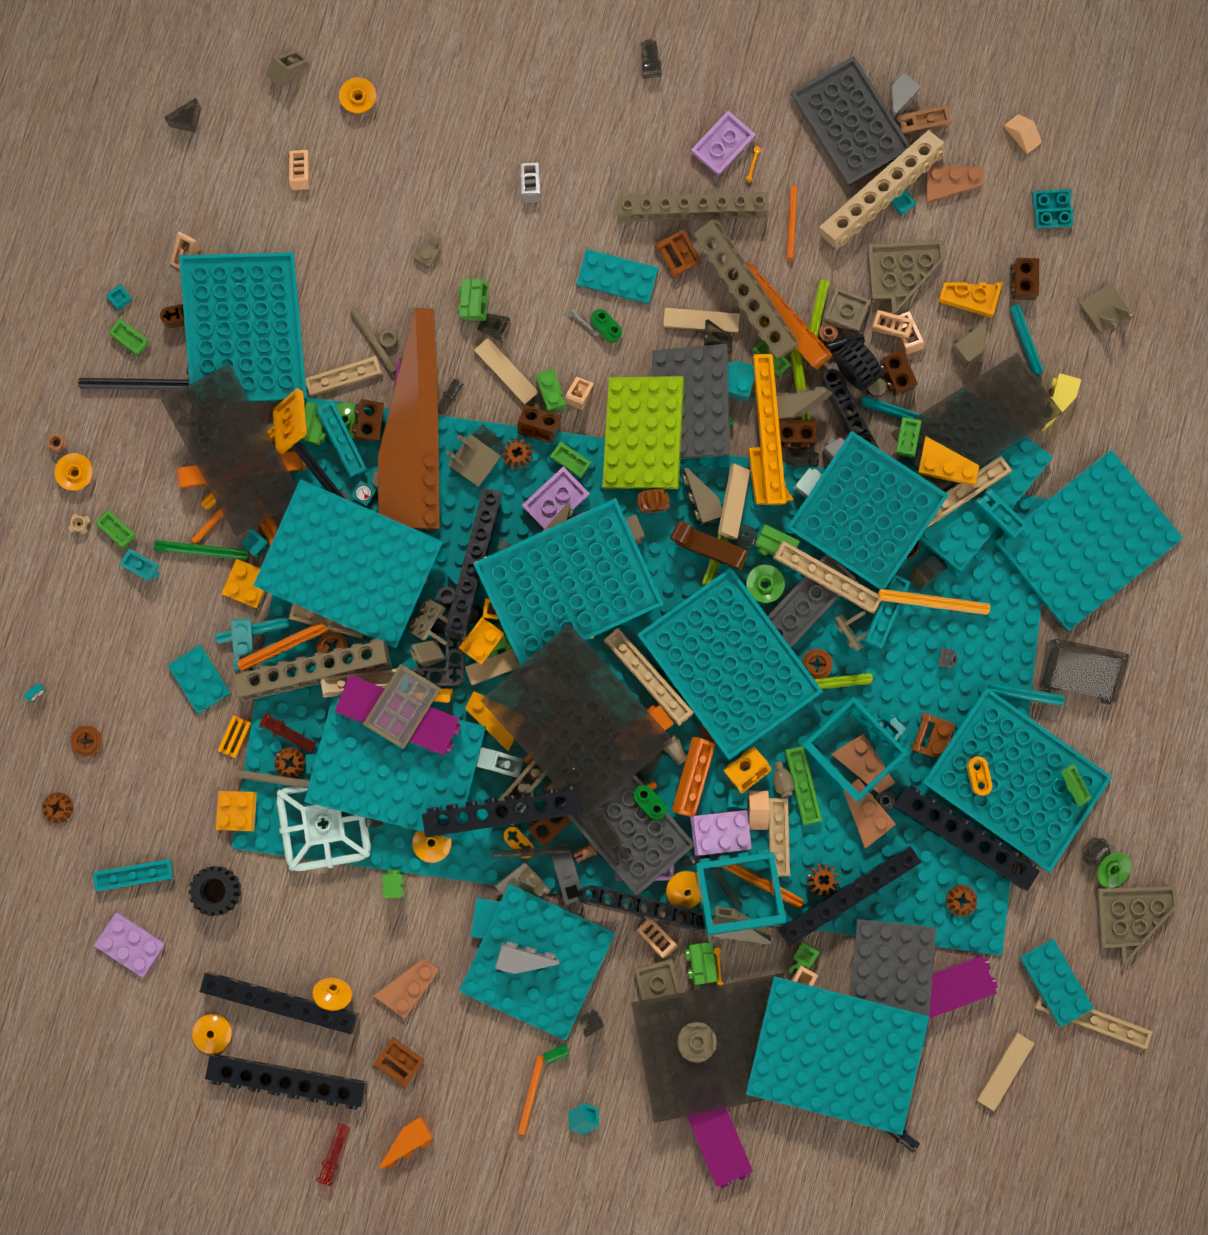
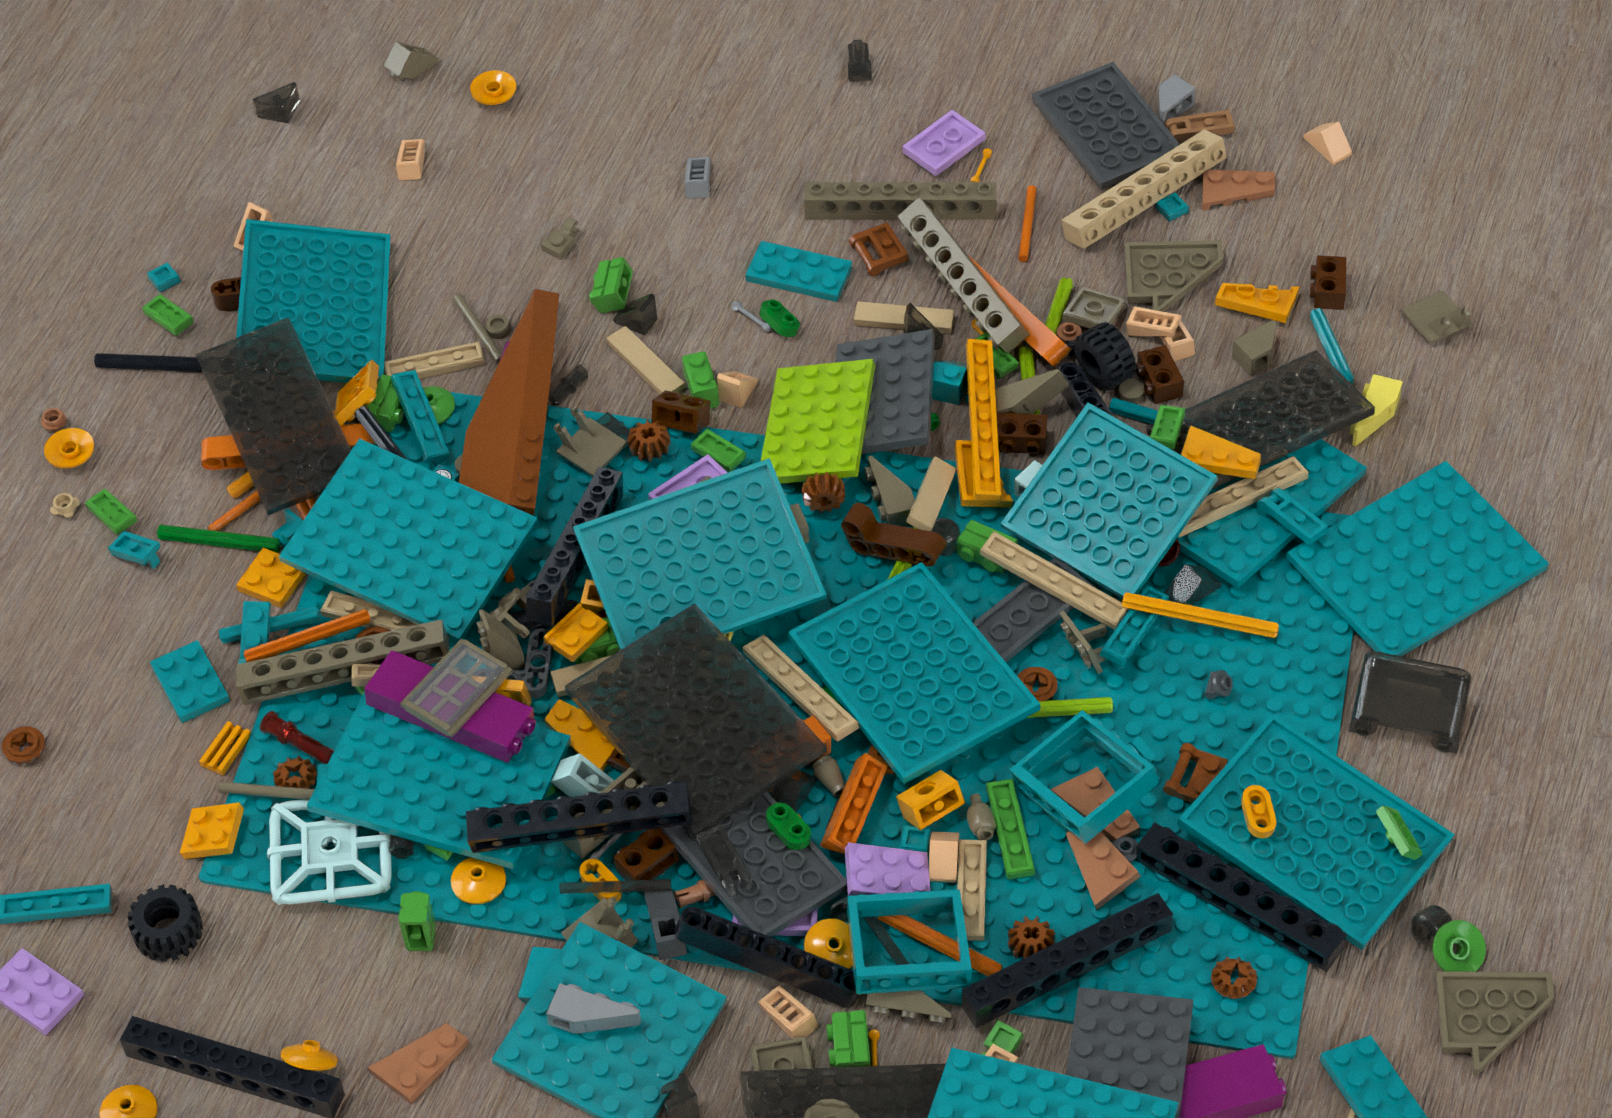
camera: 10 degrees right, 30 degrees down
(372, 422) = (458, 399): reddish brown brick -> none
(772, 577) = (970, 582): bright green dish -> none
(799, 457) = (1021, 460): clear smoke plate -> none
(1025, 694) = (1335, 731): teal axle -> none
(1052, 208) = (1366, 215): teal slope -> none

